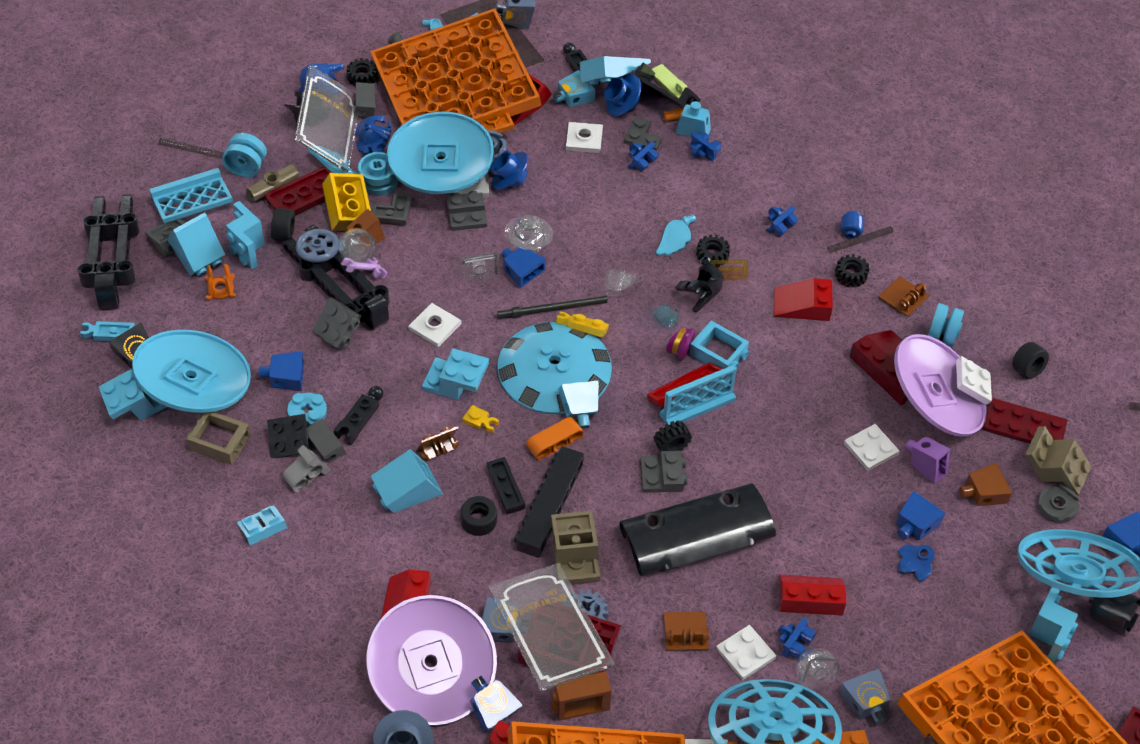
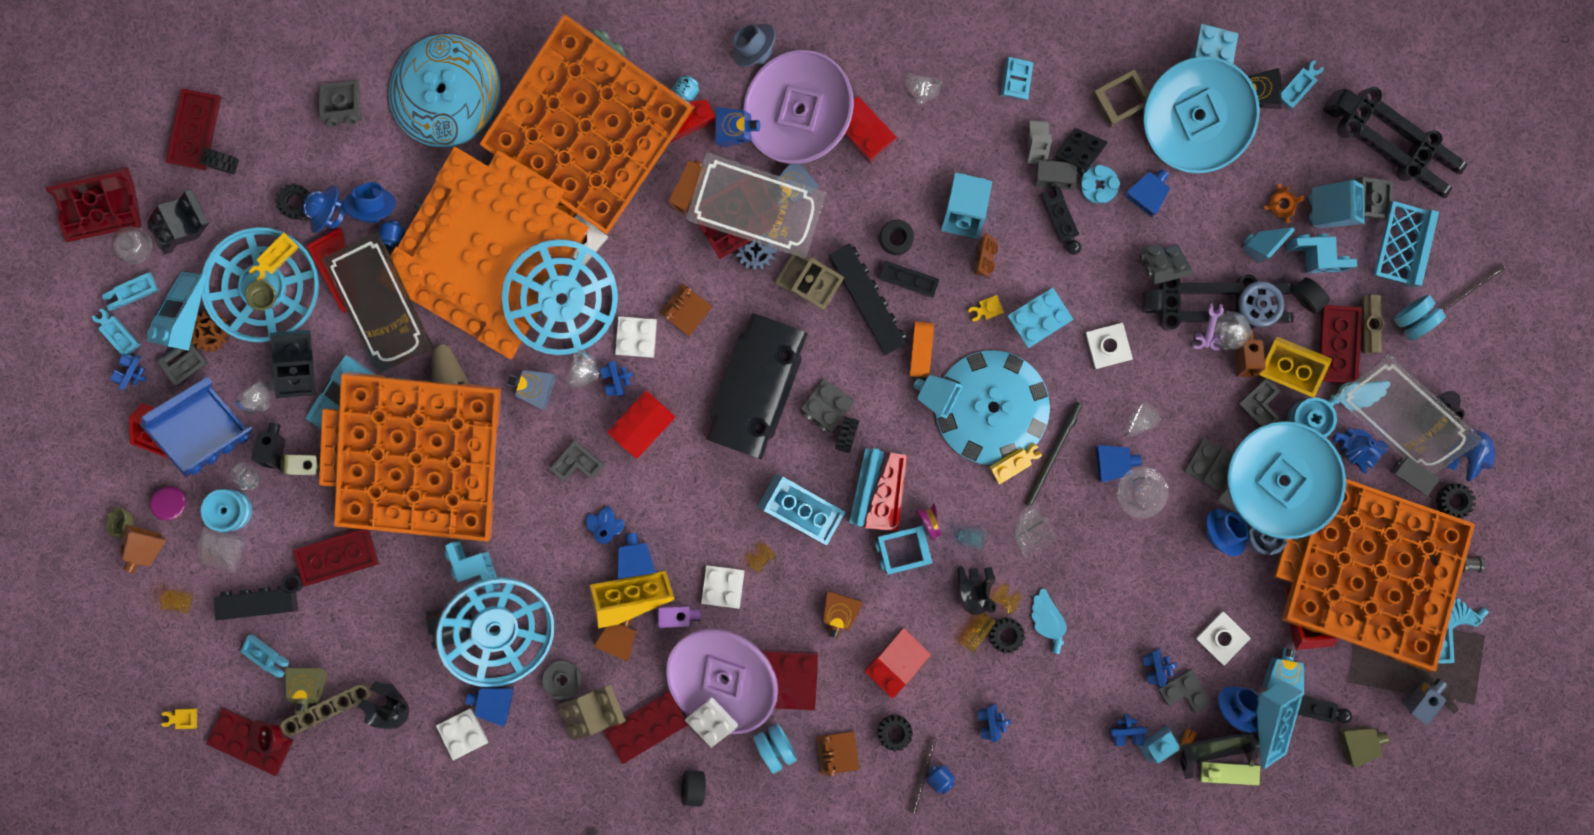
camera: 130 degrees right, 35 degrees up
(263, 270) = (1265, 243): none -> medium azure slope
(328, 577) = (922, 87): none -> clear cylinder
(579, 29) = (1362, 744): none -> olive torso
(688, 266) = (1010, 603): none -> clear yellow piece
(760, 436) = (801, 509): none -> medium azure slope
(806, 357) = (840, 612): none -> dark orange torso
(829, 435) = (763, 558): none -> clear yellow piece
(888, 621) = (576, 457): none -> dark grey plate
(955, 495) = (629, 597): none -> yellow slope

